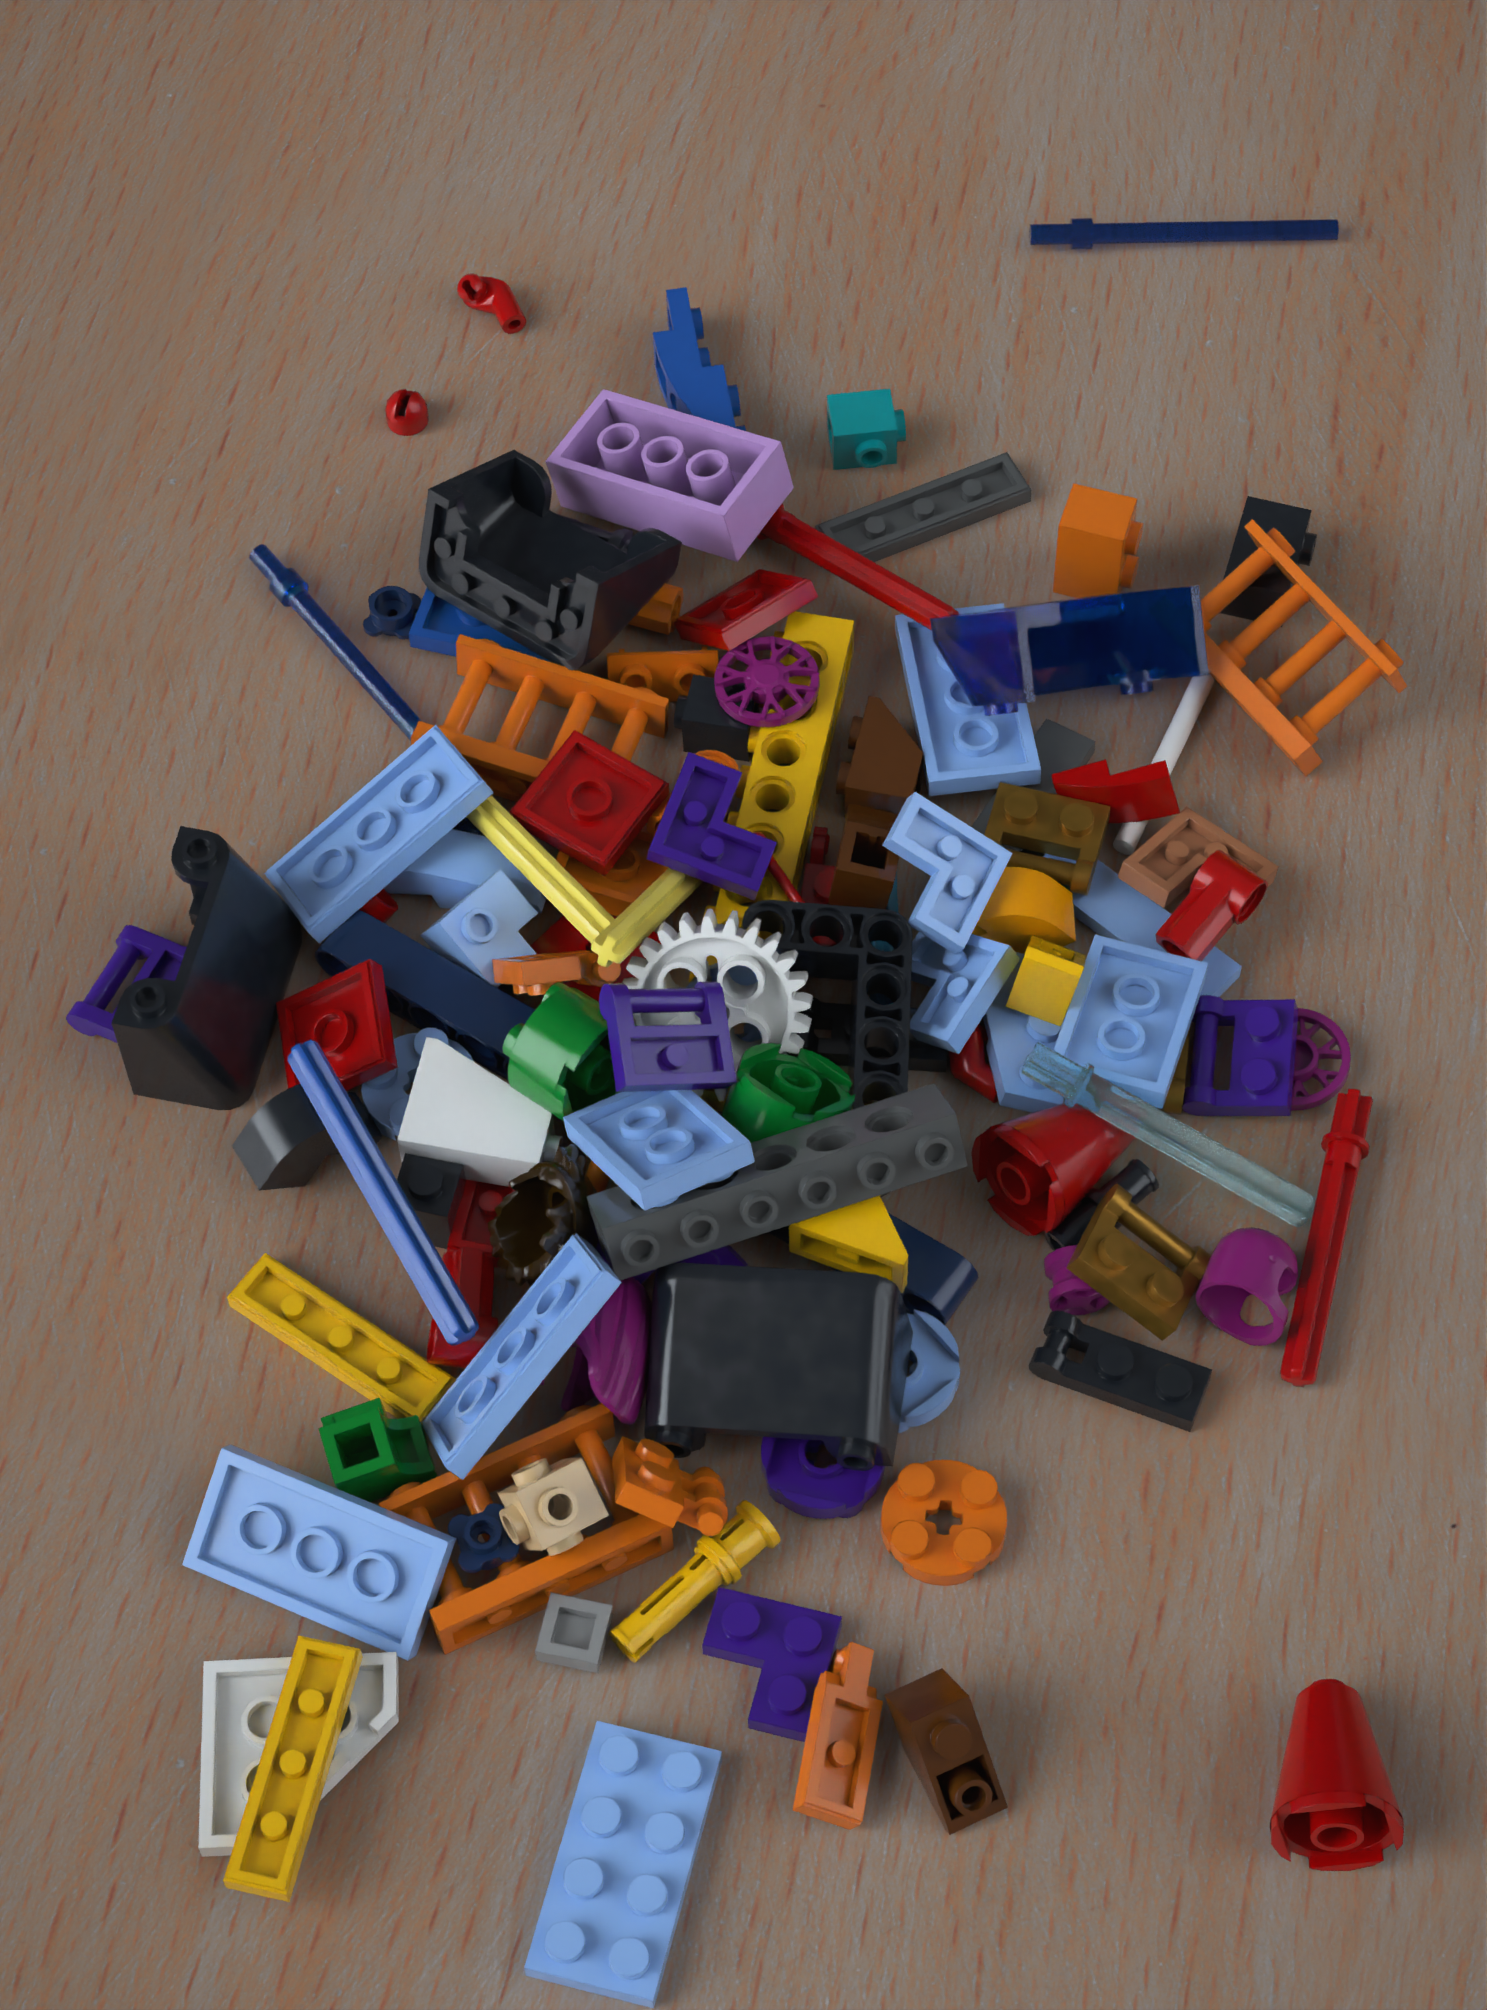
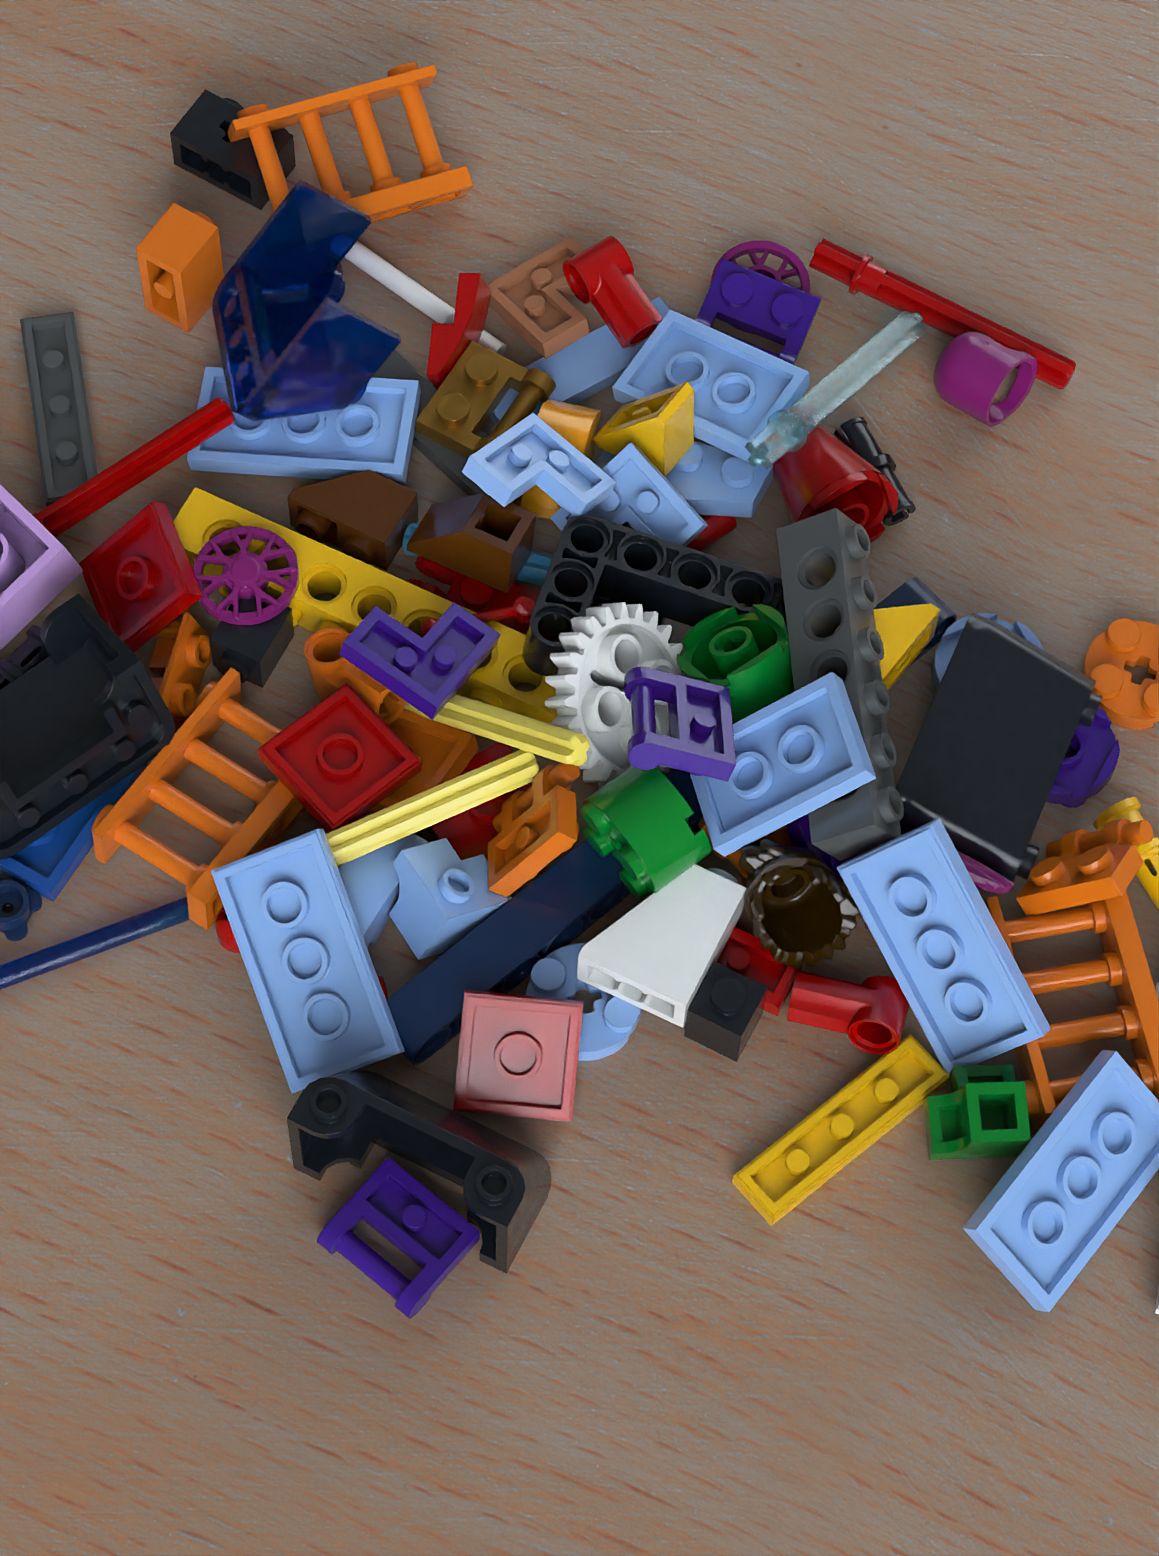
camera: 80 degrees left, 5 degrees up
(288, 1140) = (625, 1109): black brick -> none
(383, 1193) = (733, 1032): axle -> none
(479, 1555) = (1113, 1017): dark blue plate -> none
(550, 1505) = (1095, 957): tan brick -> none
(1069, 1291) = (941, 507): magenta wheel -> none
(1121, 1371) = (1029, 501): black plate -> none
(1129, 1273) = (953, 463): pearl gold plate -> none

